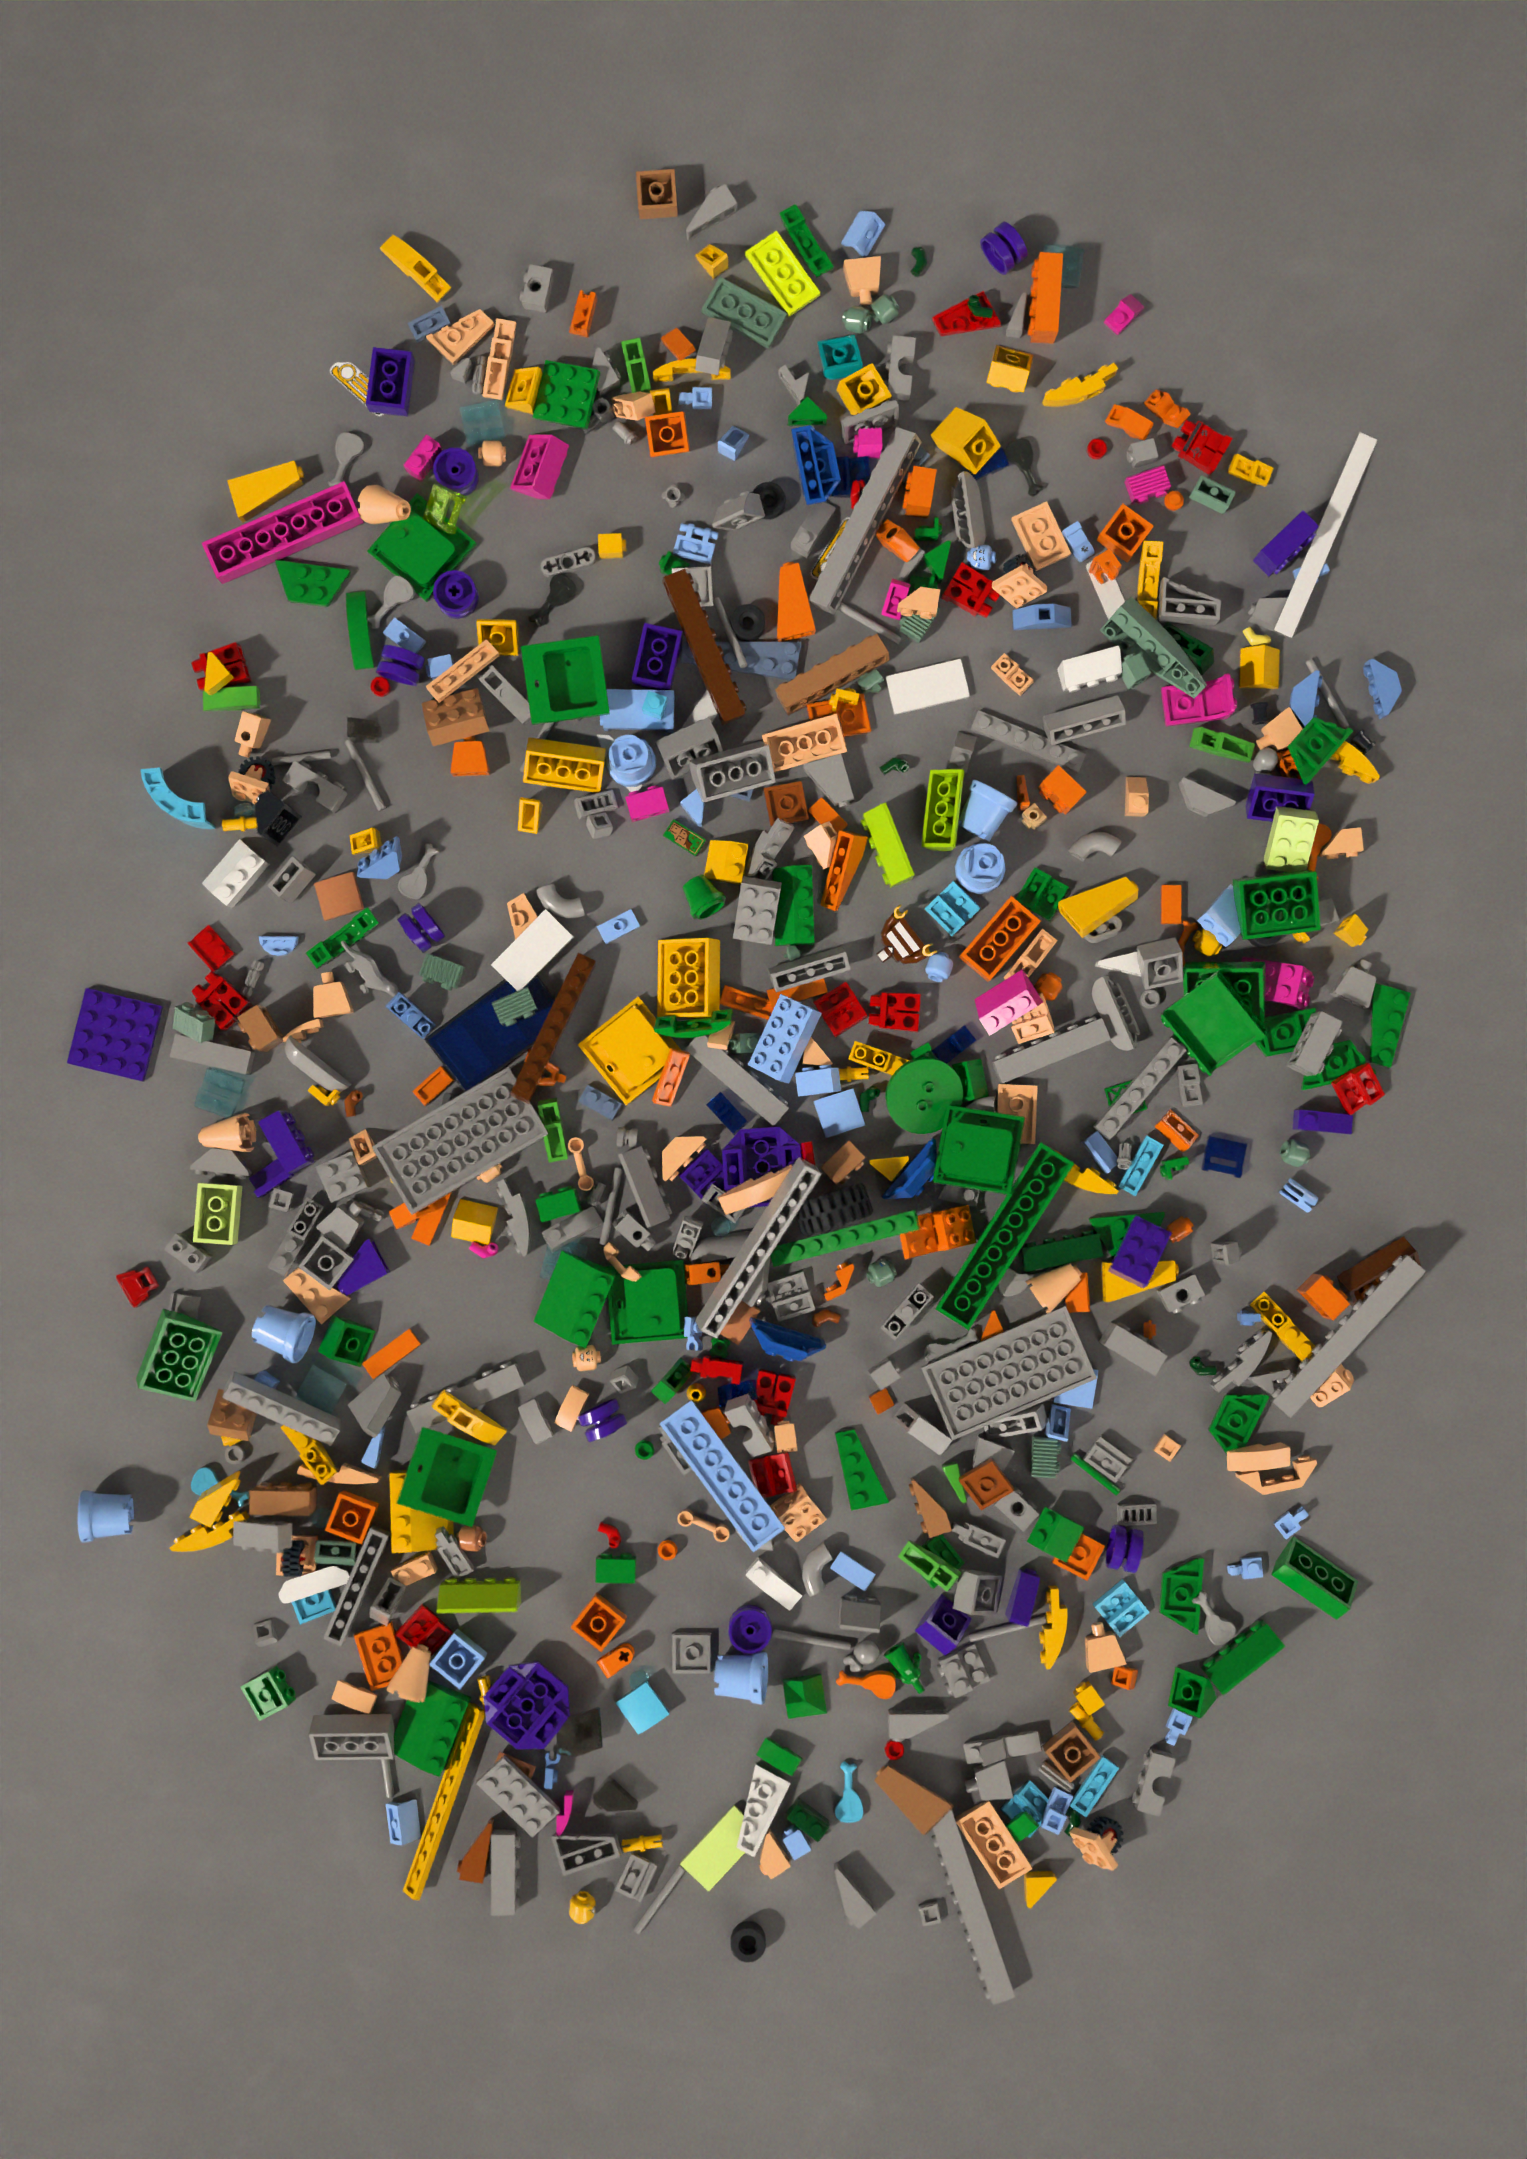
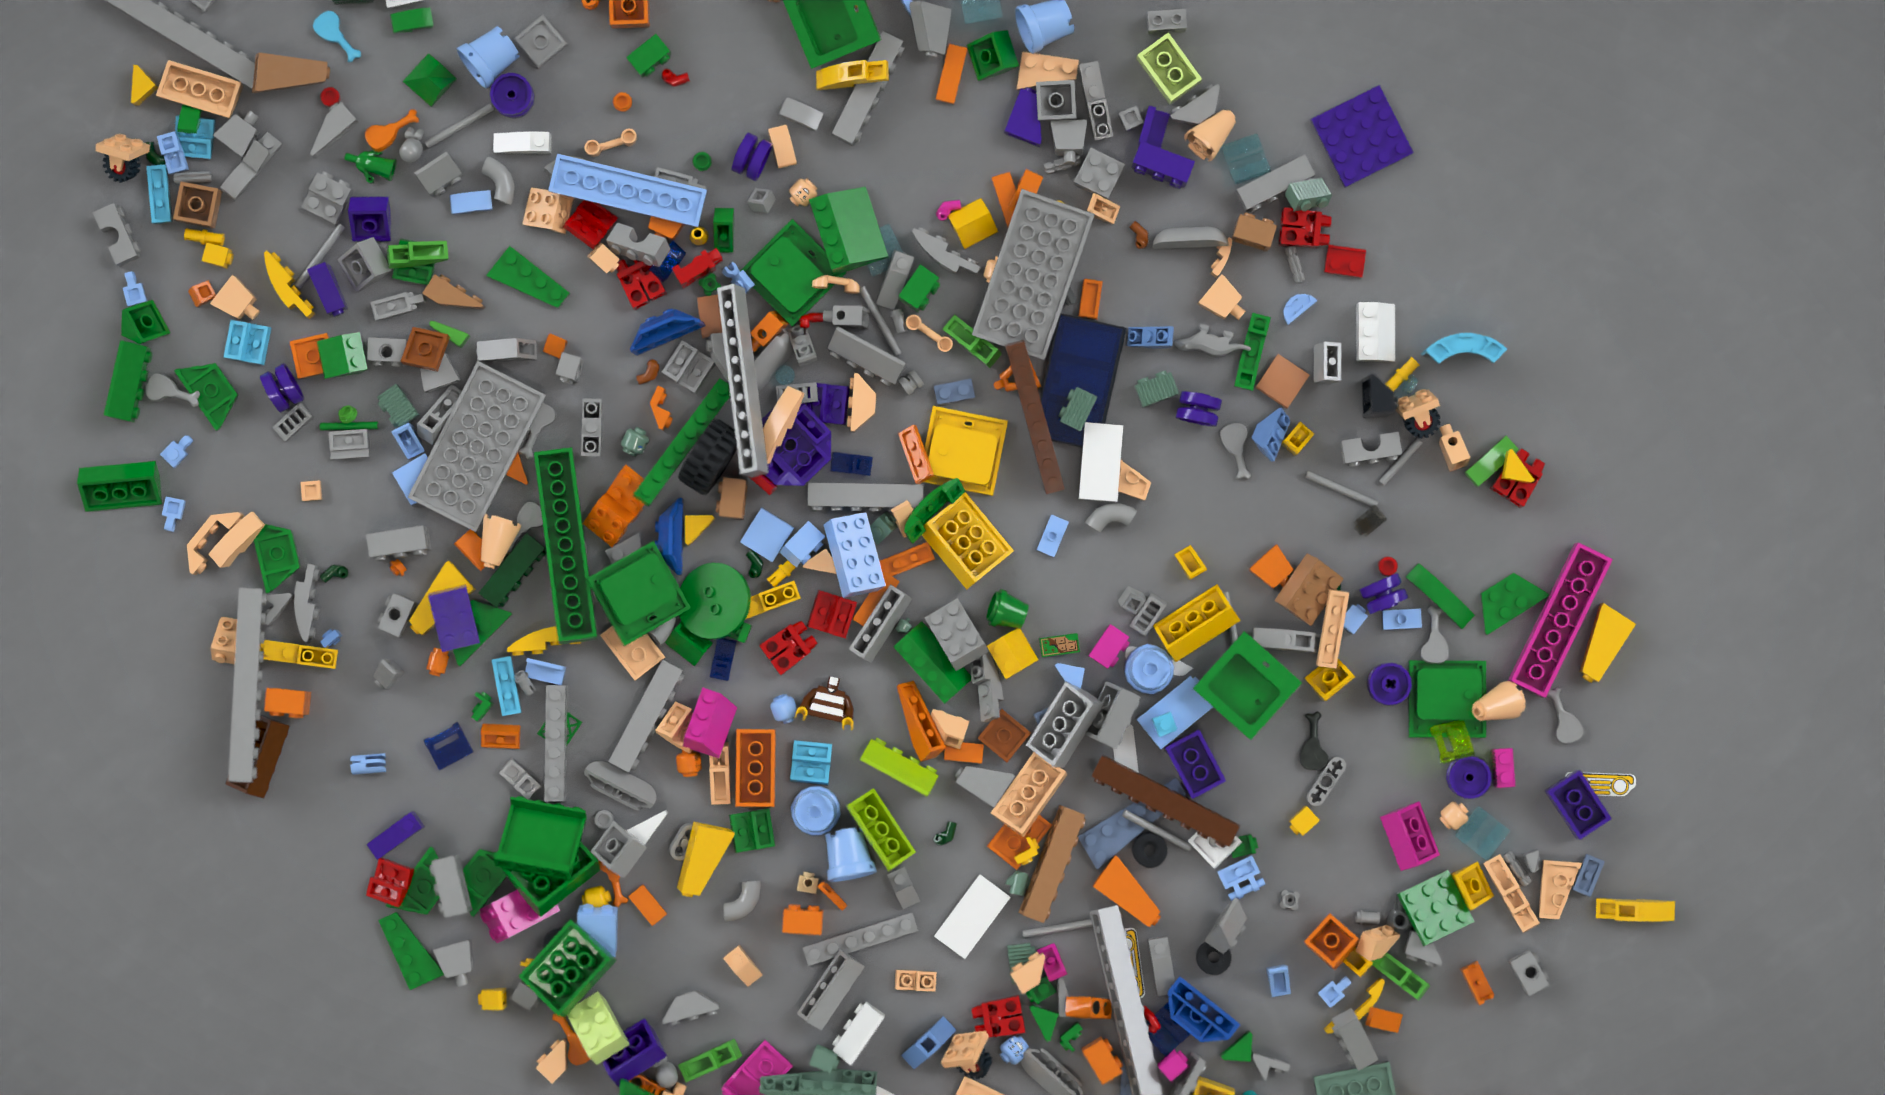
camera: 145 degrees right, 0 degrees up
(321, 1094) = (1166, 221): yellow bracket -> none
(662, 1254) = (811, 317): none -> red arm
(1089, 1484) = (347, 414): none -> bright green plate
(1295, 1153) = (397, 793): sand green head -> none

